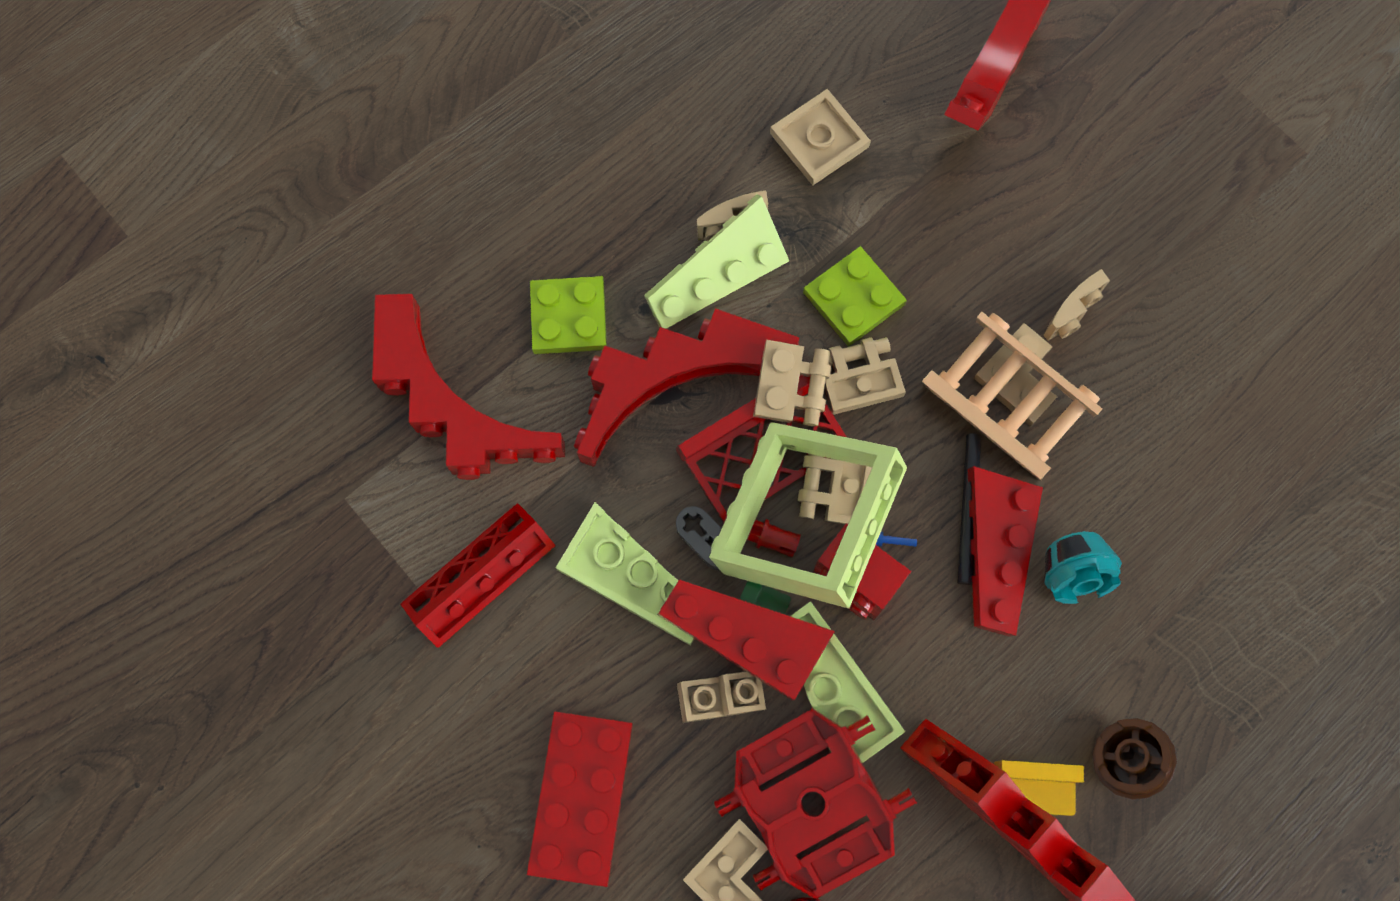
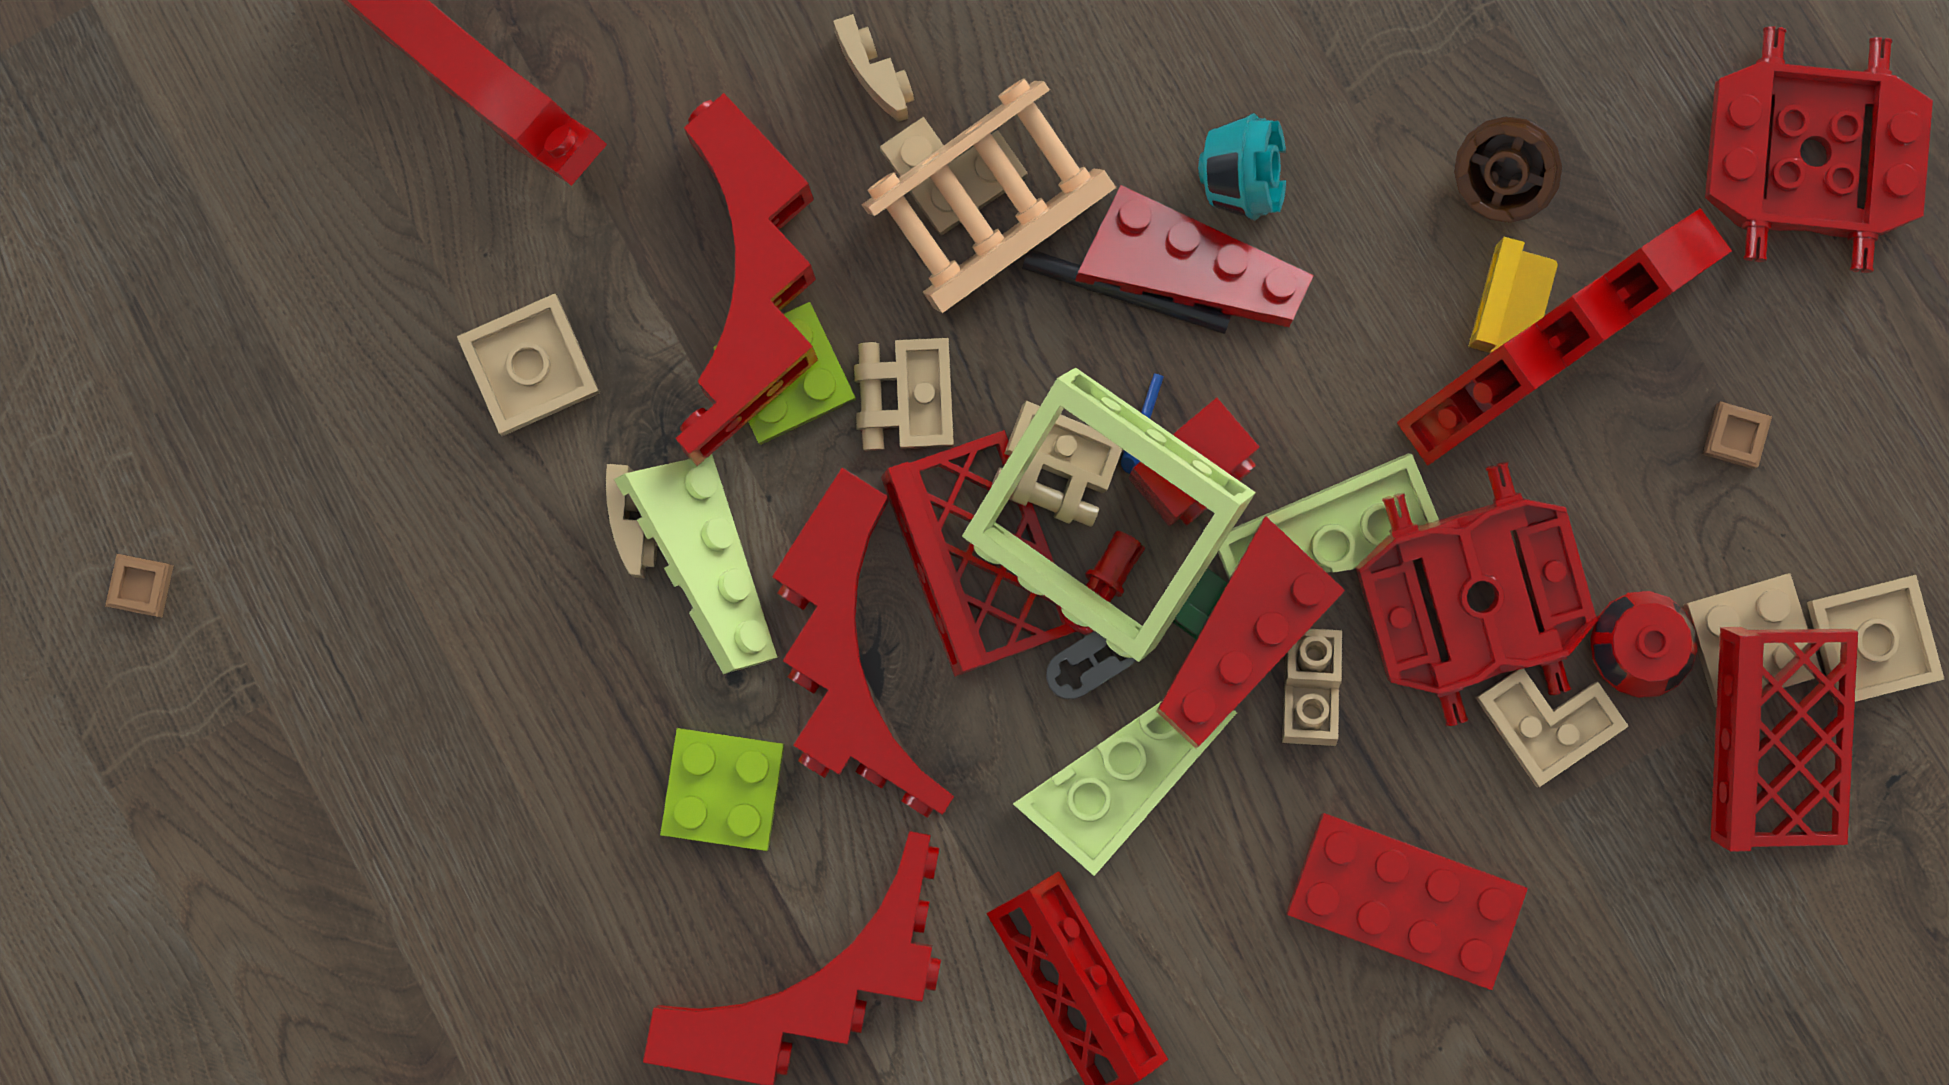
camera: 80 degrees left, 10 degrees up
(779, 383) = (902, 509): tan plate -> none
(866, 264) = (759, 345): none -> red arch

